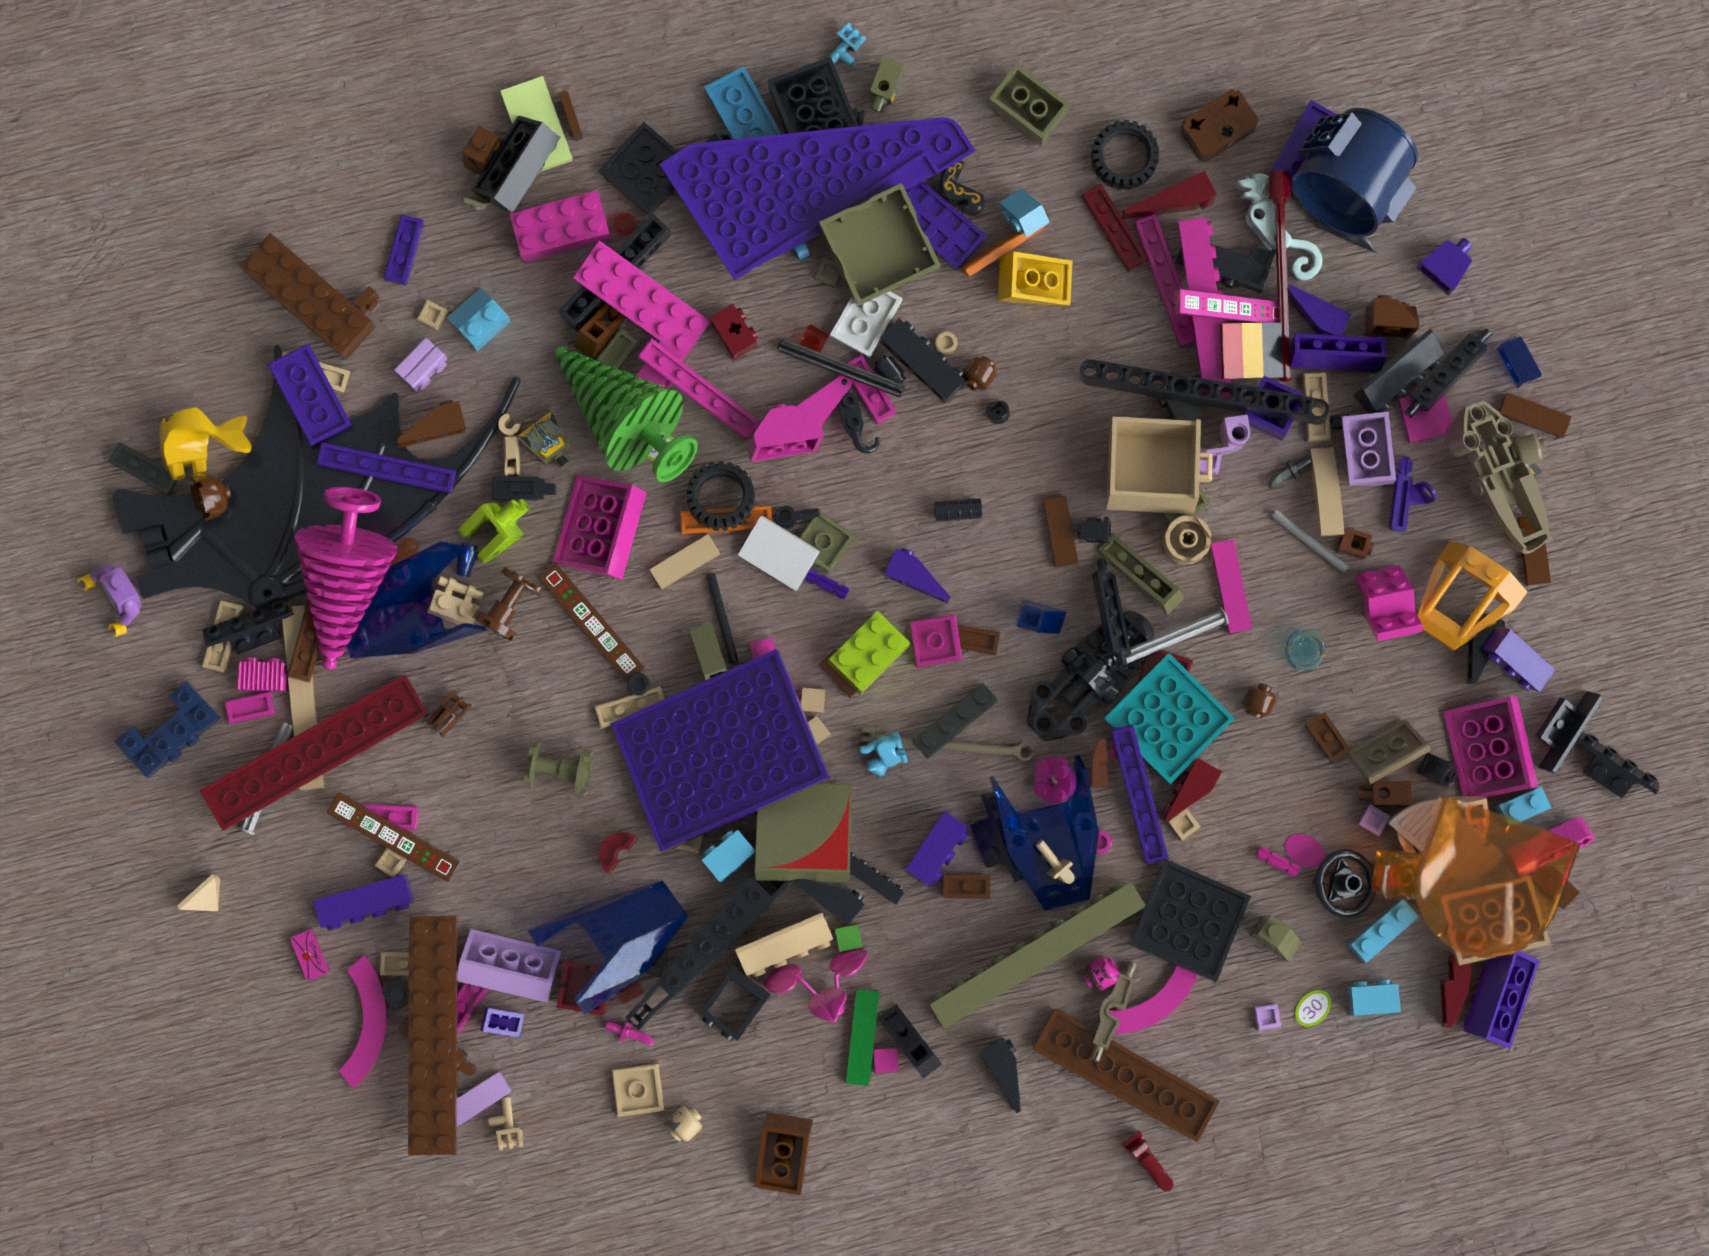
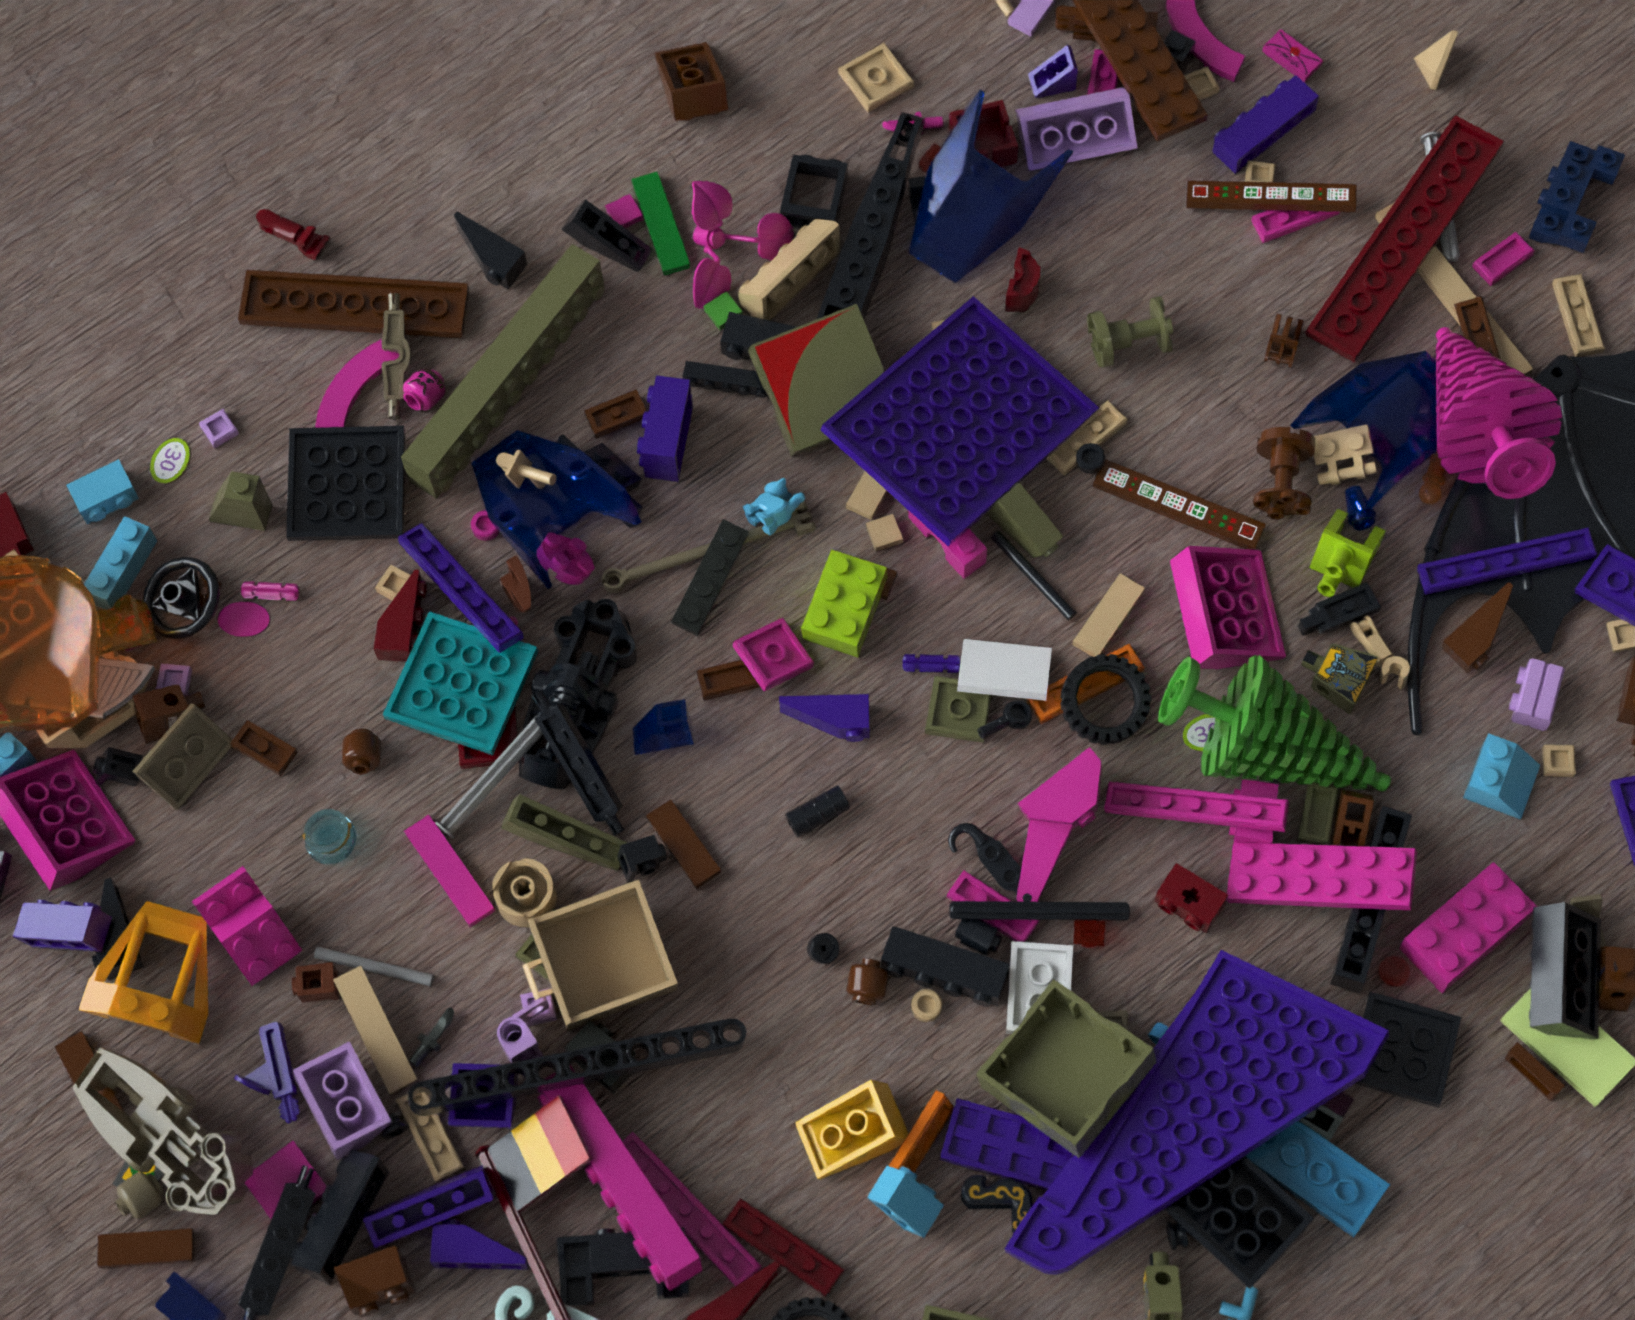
camera: 160 degrees right, 15 degrees down
(251, 628) = (1554, 331): black bracket -> none
(262, 676) = (1510, 290): dark pink brick -> none
(684, 1124) = (809, 62): tan head -> none
(728, 855) = (896, 322): medium azure brick -> none
(1225, 307) = (593, 1182): dark pink tile -> none

